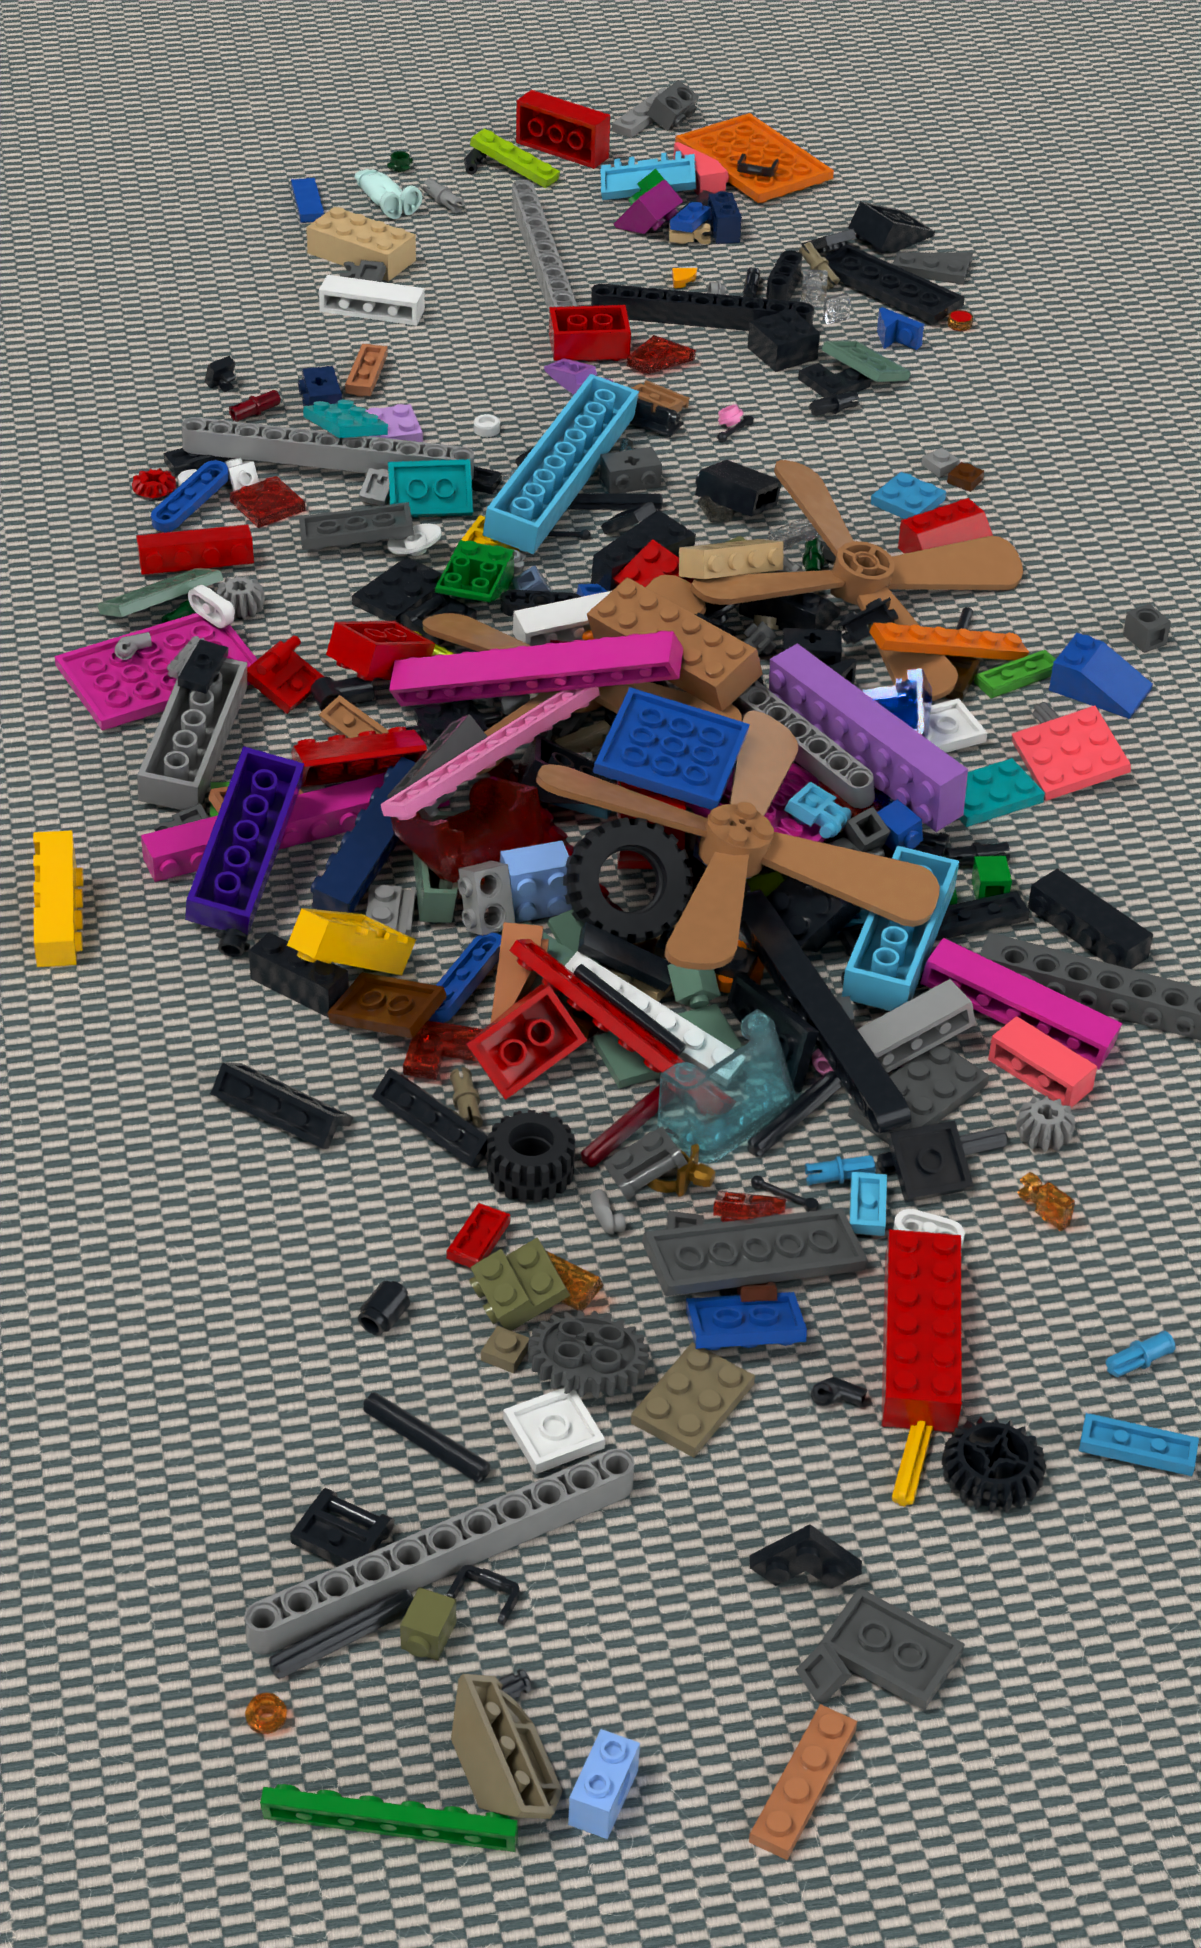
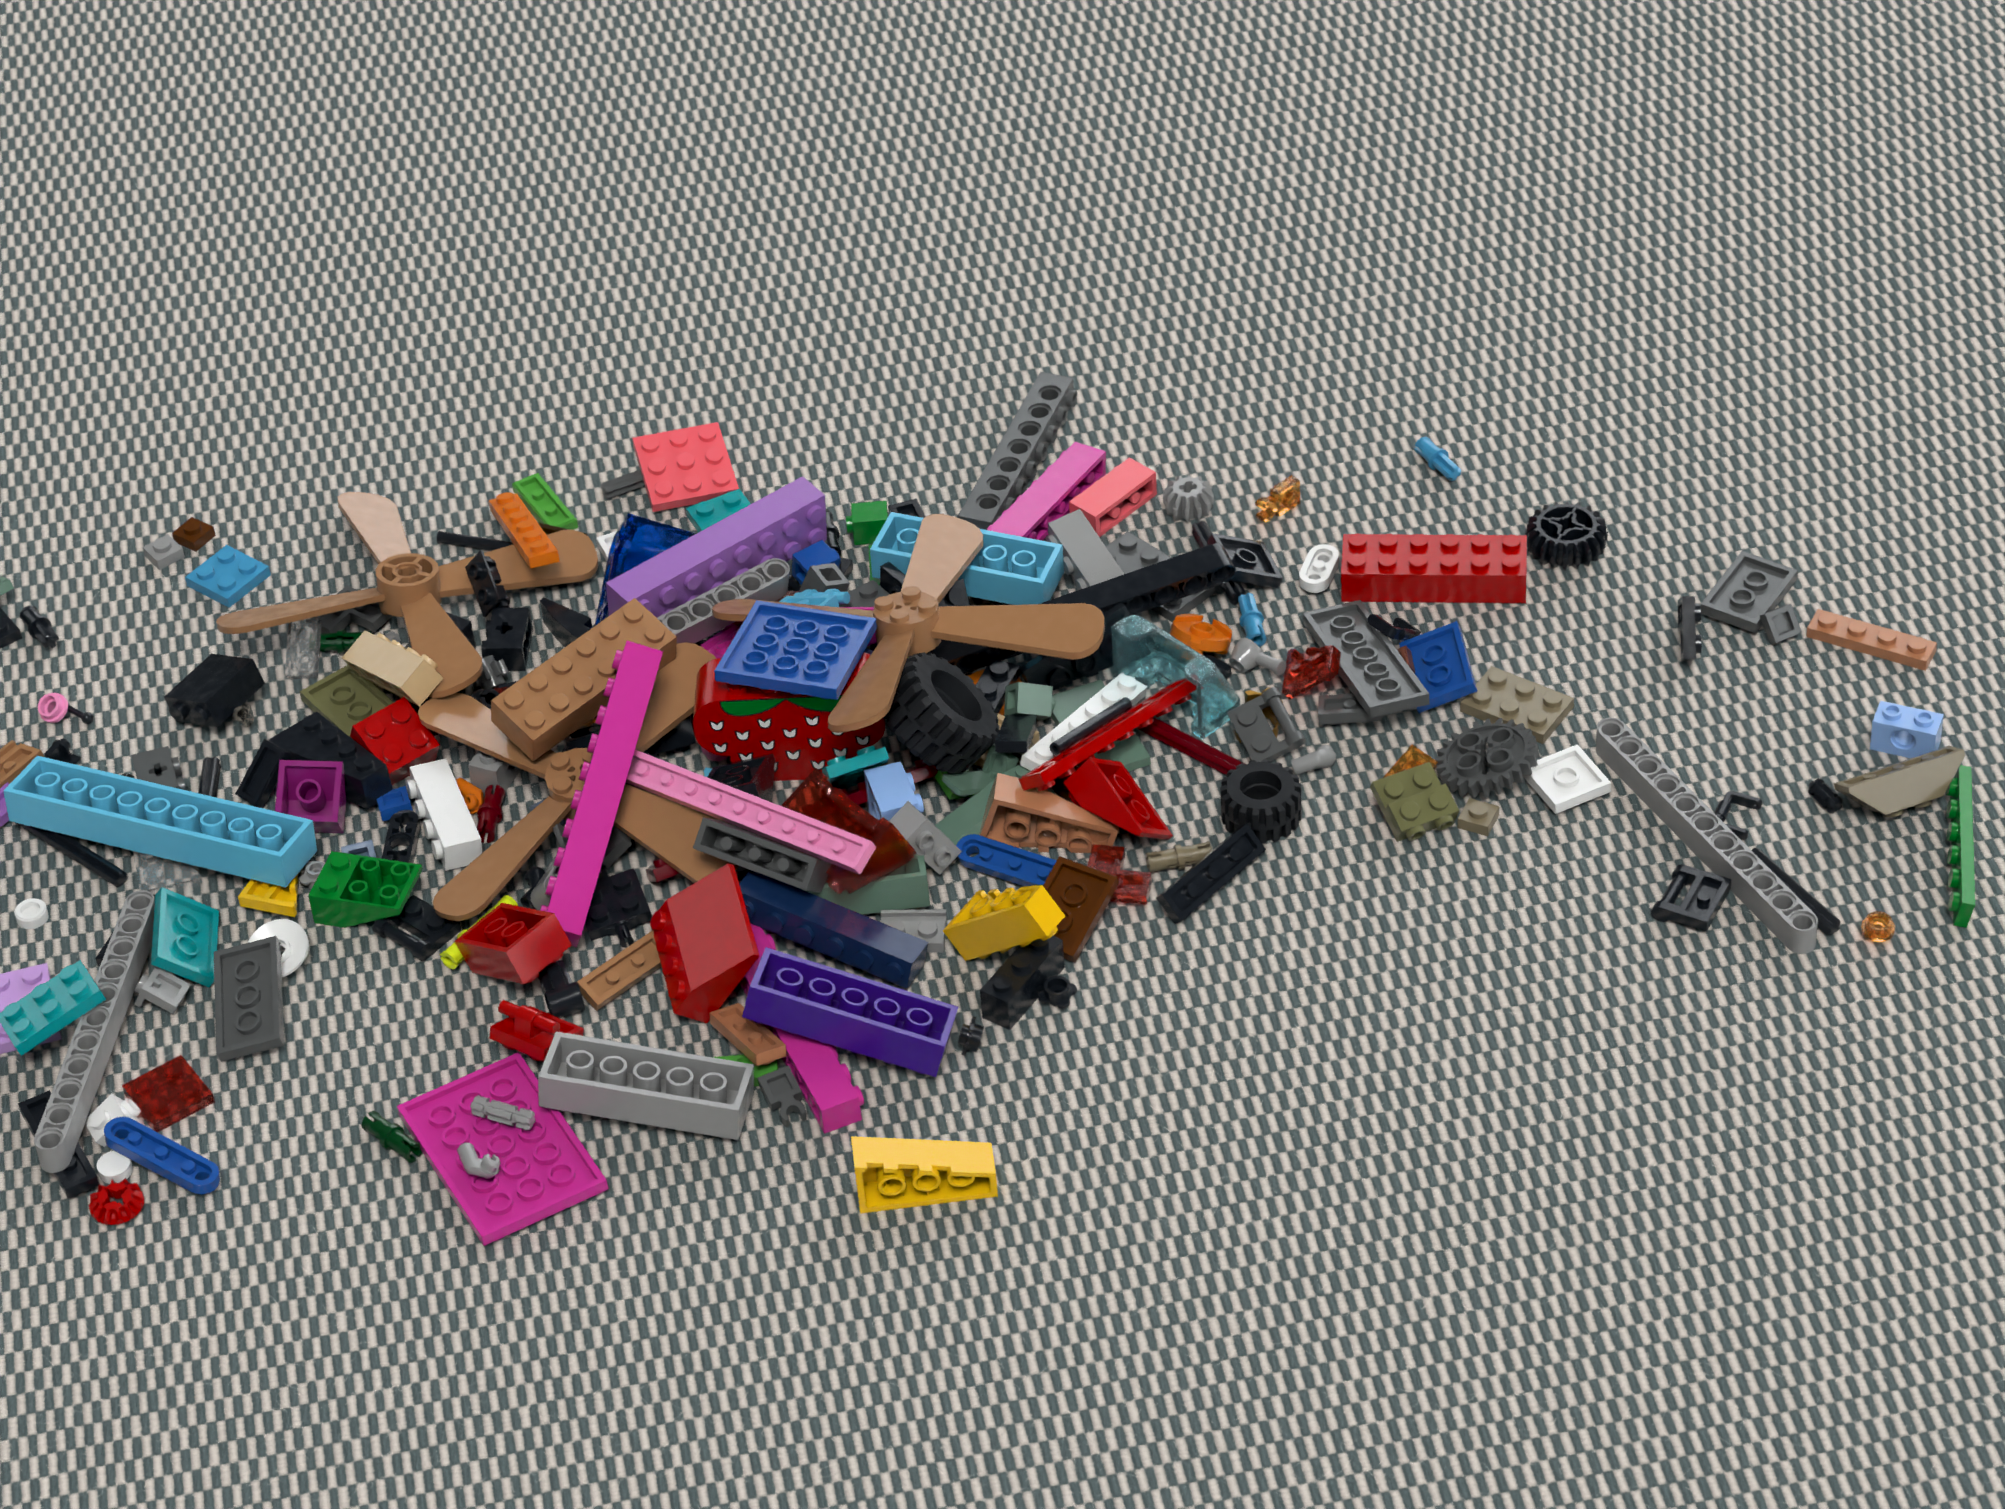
camera: 85 degrees left, 0 degrees up
(159, 592) = (365, 1157): sand green tile -> none
(195, 549) = (280, 1136): red brick -> none
(203, 666) = (572, 1059): black plate -> none
(211, 606) = (415, 1095): white plate -> none
(244, 594) = (375, 1089): light grey gear -> none
(279, 1104) = (1197, 981): black fence -> none
(286, 1005) = (1057, 991): none -> black plate
(384, 1307) = (1447, 889): black brick -> none
(397, 590) = (362, 963): black plate -> none
(426, 1437) = (1583, 857): black axle -> none
(428, 1624) = (1780, 836): olive brick -> none
(478, 1235) = (1354, 837): red plate -> none
(569, 834) = (849, 772): none -> teal plate
(581, 537) = (313, 792): none -> magenta slope
(776, 1164) = (1249, 655): none -> light grey bar
(792, 1132) = (1201, 635): none -> orange plate
(804, 1295) = (1399, 630): none -> black piece
(809, 1204) = (1286, 642): black hinge -> none
(836, 1390) = (1498, 623): black arm -> none
(868, 1203) = (1288, 602): medium azure plate -> none
(912, 1464) = (1564, 585): yellow axle -> none
(943, 526) = (315, 544): red slope -> none
(1089, 920) = (926, 464): black brick -> none
(1098, 676) = (561, 451): blue slope -> none
(1139, 1444) = (1531, 462): dark azure plate -> none
(1146, 628) = (485, 413): dark grey brick -> none

